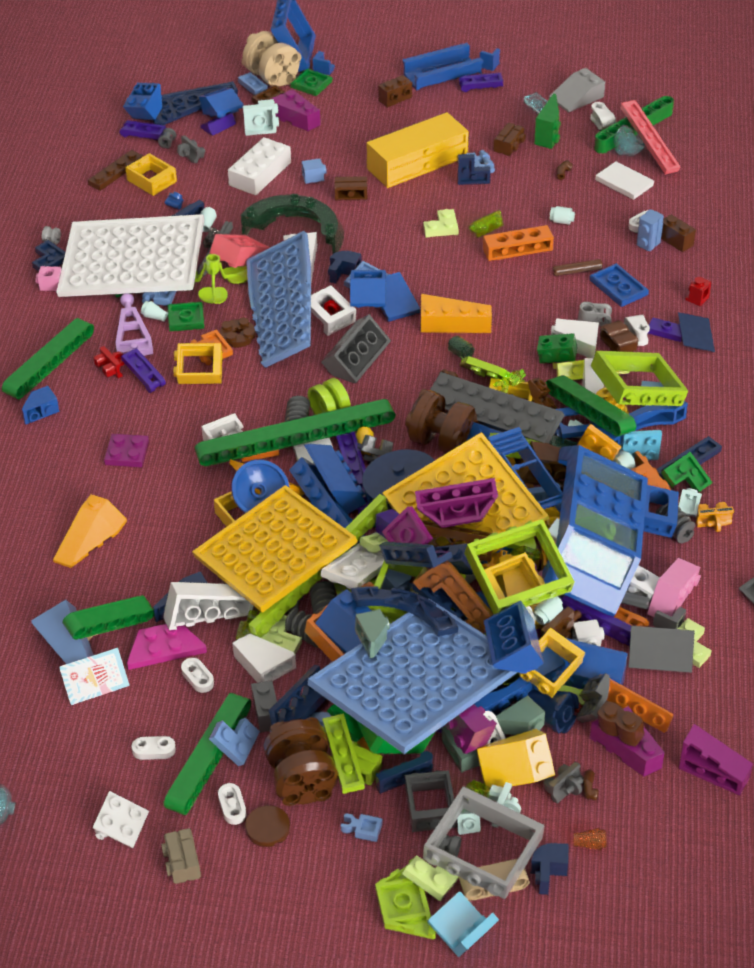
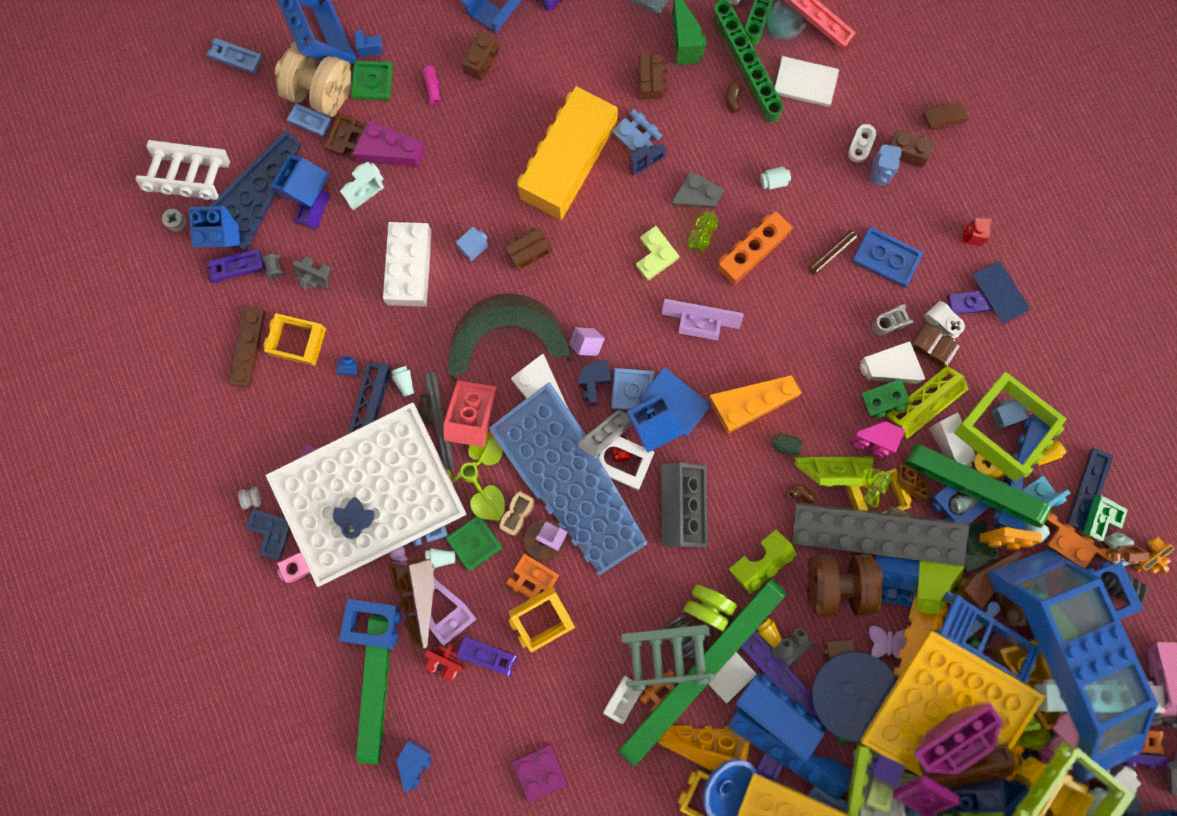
camera: 25 degrees left, 35 degrees up
(64, 319) = (350, 619): none -> blue panel
(112, 260) = (355, 515): none -> dark blue plate
(121, 96) = (174, 225): none -> light grey wheel
(123, 309) = (415, 584): none -> wedge
(149, 71) = (183, 153): none -> white fence
(228, 306) = (520, 508): none -> tan brick
(229, 41) = (234, 56): none -> medium blue plate
(245, 325) = (551, 536): none -> lavender panel
(274, 394) = (676, 637): none -> sand green fence
(325, 277) = (605, 433): none -> light grey tile
(350, 96) = (432, 85): none -> dark pink axle
(354, 244) = (586, 341): none -> lavender panel
(397, 396) = (754, 574): none -> lime arch
(449, 263) = (701, 320): none -> lavender bracket
(498, 202) = (698, 192): none -> dark grey wing
(533, 359) = (879, 439): none -> dark pink slope
(587, 155) = (747, 52): none -> green beam
(670, 428) = (1053, 453): none -> yellow cone
(690, 494) = (1129, 553): none -> dark orange plate
(712, 227) = (944, 115): none -> reddish brown slope

